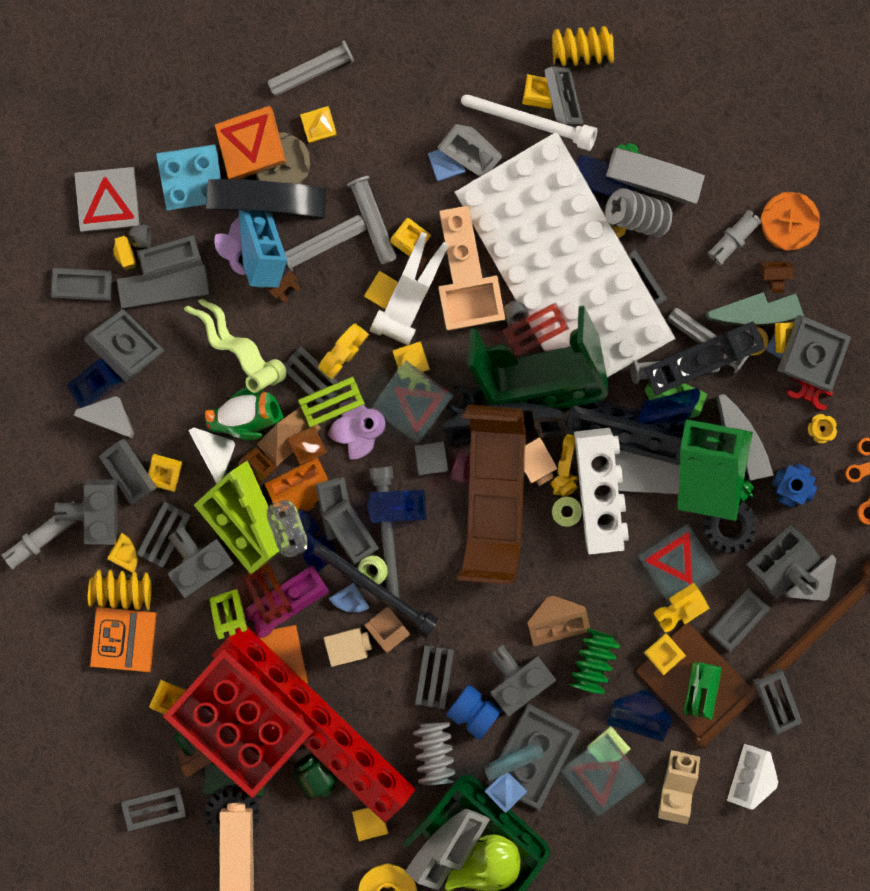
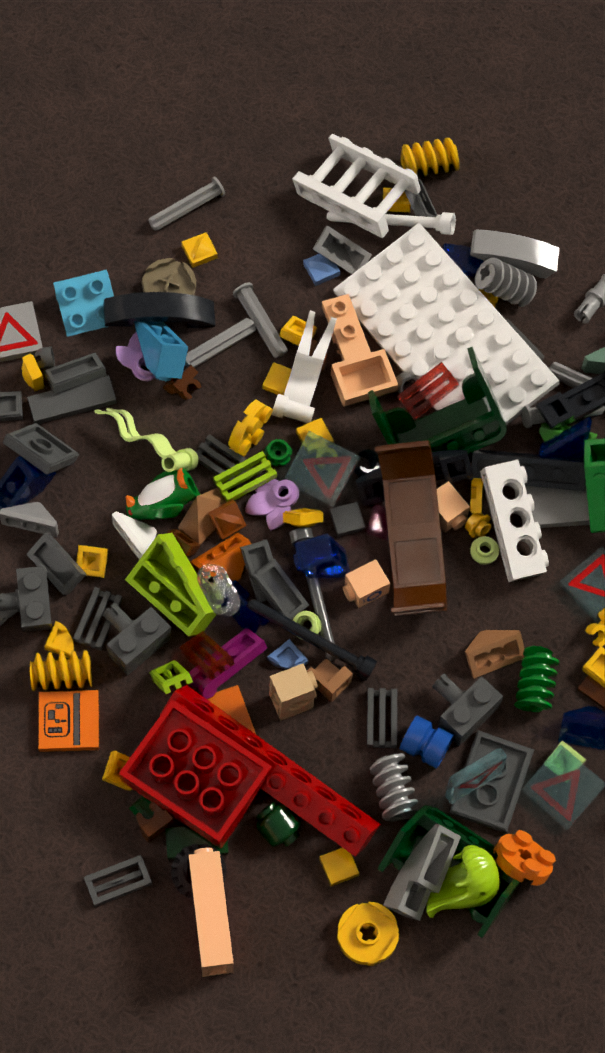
camera: 10 degrees left, 20 degrees down
(250, 143) = (139, 267): orange tile -> none
(370, 367) = (278, 446): none -> green plate
(384, 454) = (303, 517): none -> yellow tile
(438, 535) = (366, 584): none -> light nougat brick
(489, 103) = (353, 207): none -> white fence
(505, 791) = (471, 813): medium blue tile -> none
(561, 838) = (524, 858): none -> orange plate

